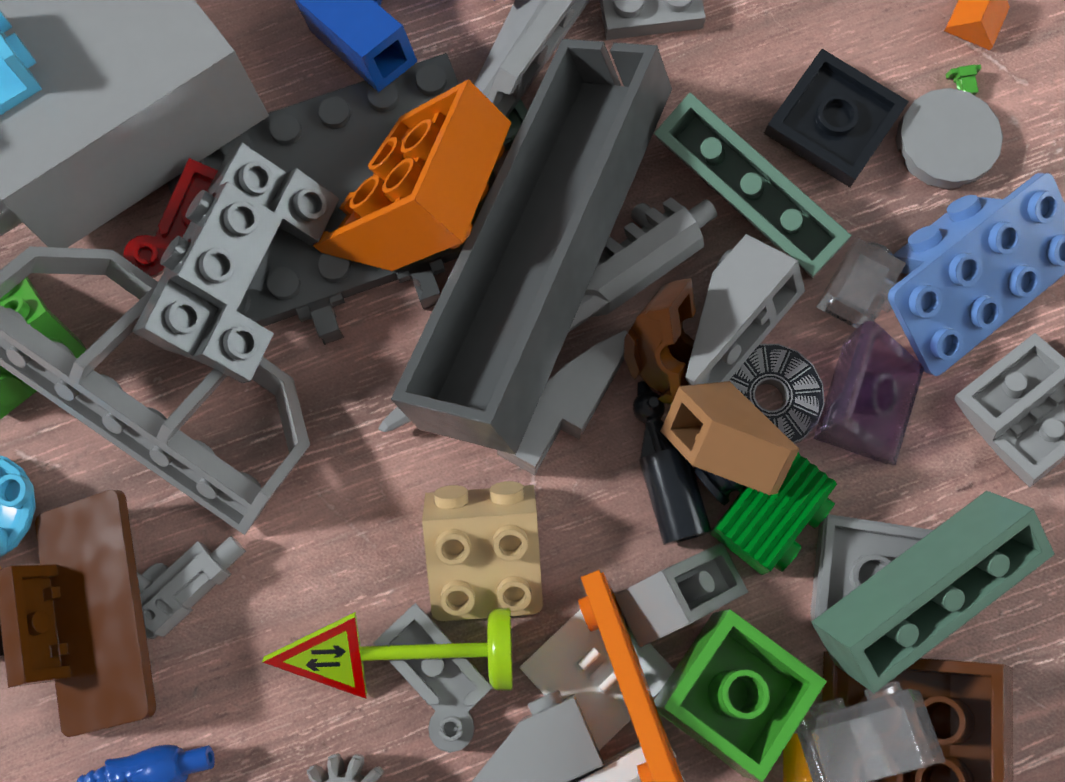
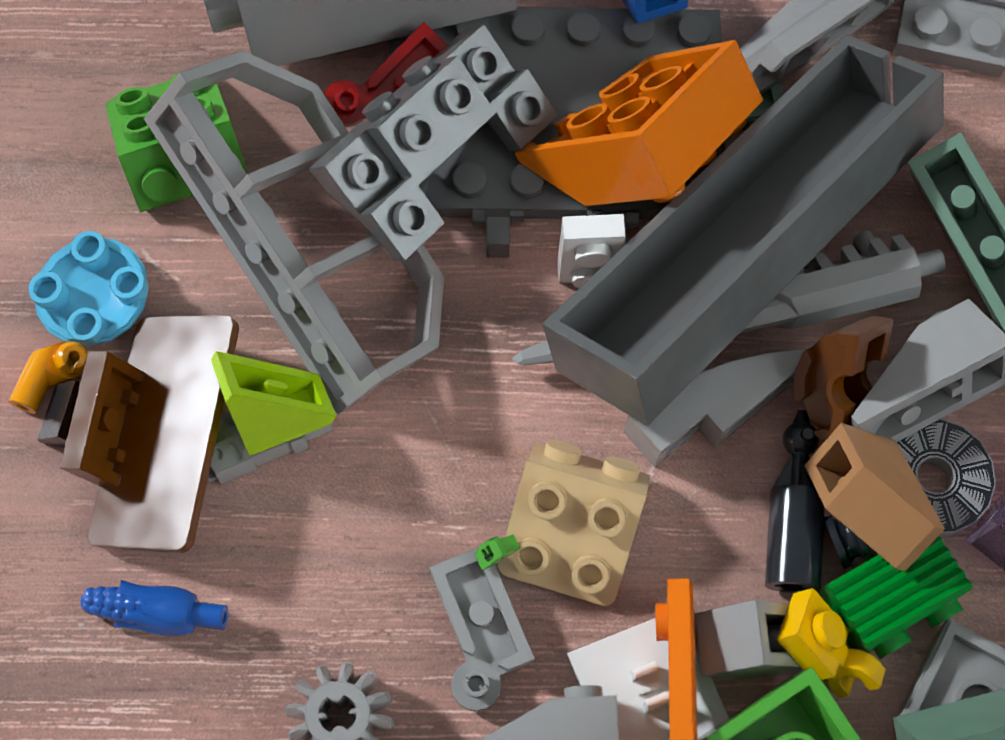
camera: 20 degrees right, 5 degrees down
(175, 552) = (271, 400): none -> lime slope
(337, 659) = (386, 563): lime piece -> none
(407, 308) = (588, 245): none -> white plate
(425, 607) = (495, 550): none -> bright green piece
(724, 580) = (817, 640): none -> yellow plate

